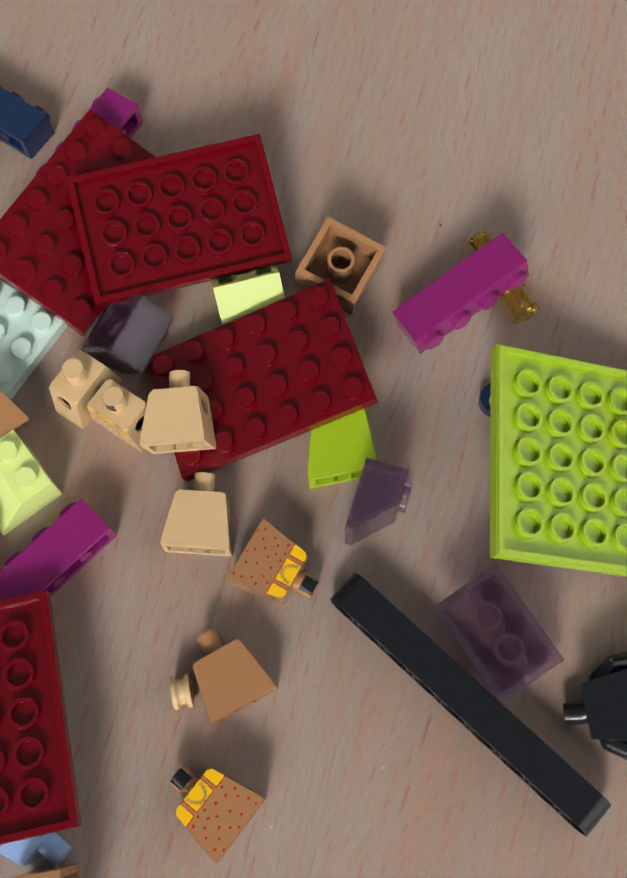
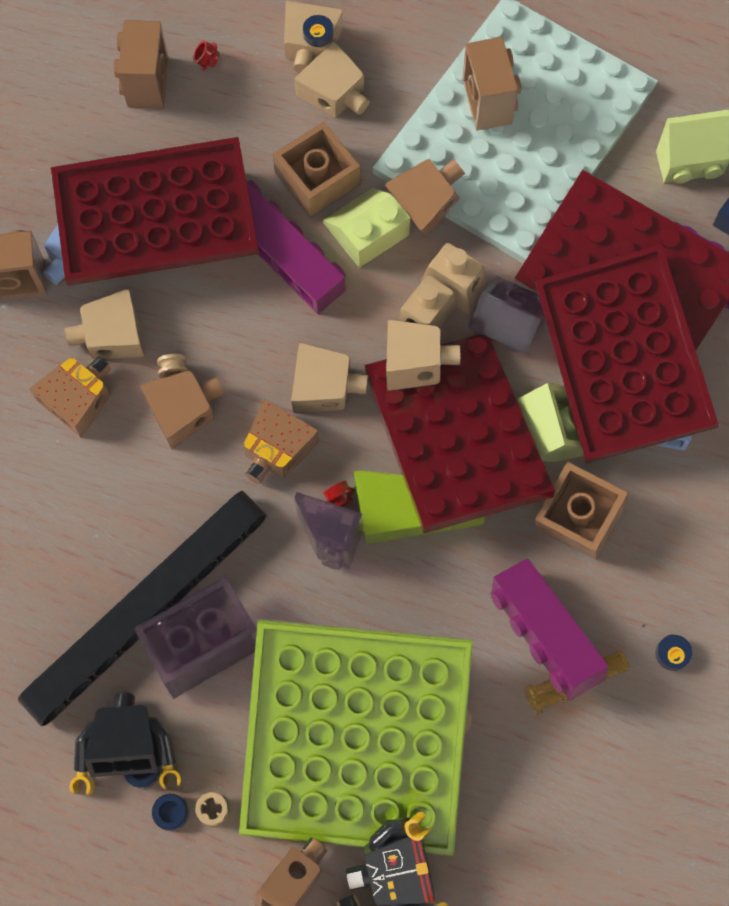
camera: 90 degrees right, 0 degrees up
(132, 773) = (108, 328): none -> tan torso
(328, 499) = (339, 494): none -> red plate
(466, 198) = (673, 652): none -> dark blue tile

